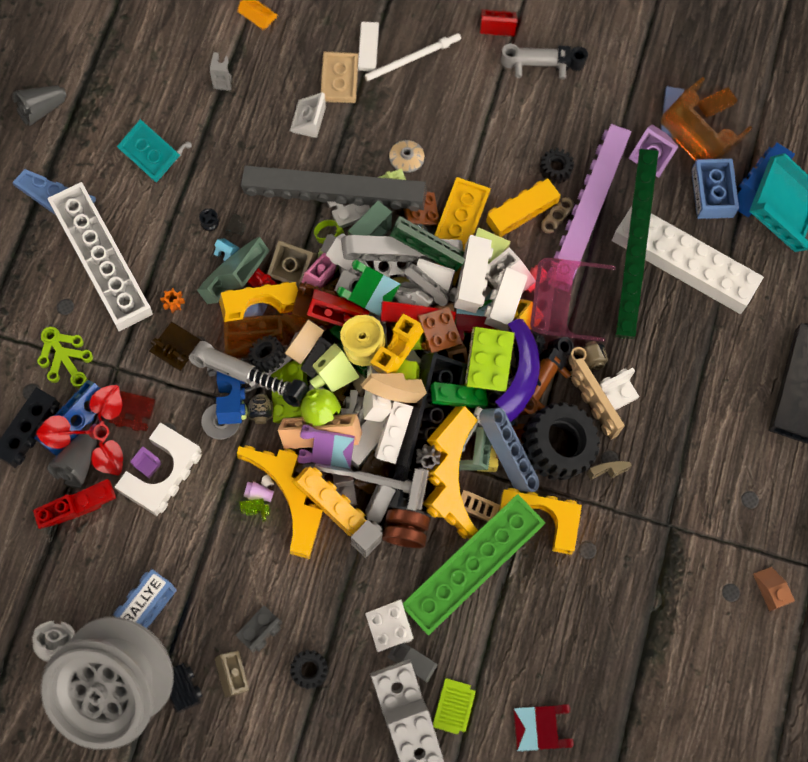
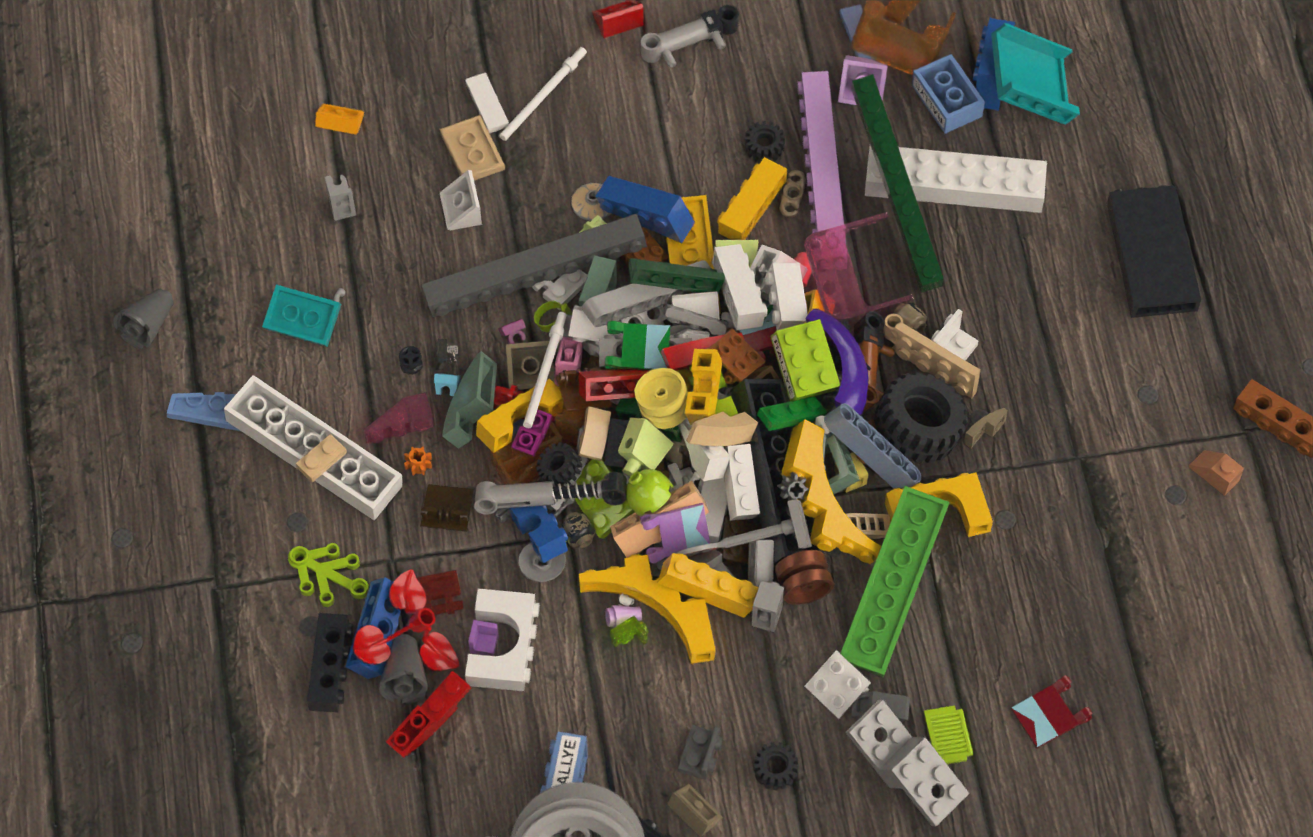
camera: 20 degrees left, 10 degrees down
(96, 268) = (321, 458): none -> tan plate
(181, 261) = (404, 417): none -> clear pink slope
(260, 319) = (529, 439): none -> magenta slope
(294, 228) = (511, 329): none -> magenta tile
(317, 250) = (556, 334): none -> white bar
(439, 179) = (655, 208): none -> blue wedge

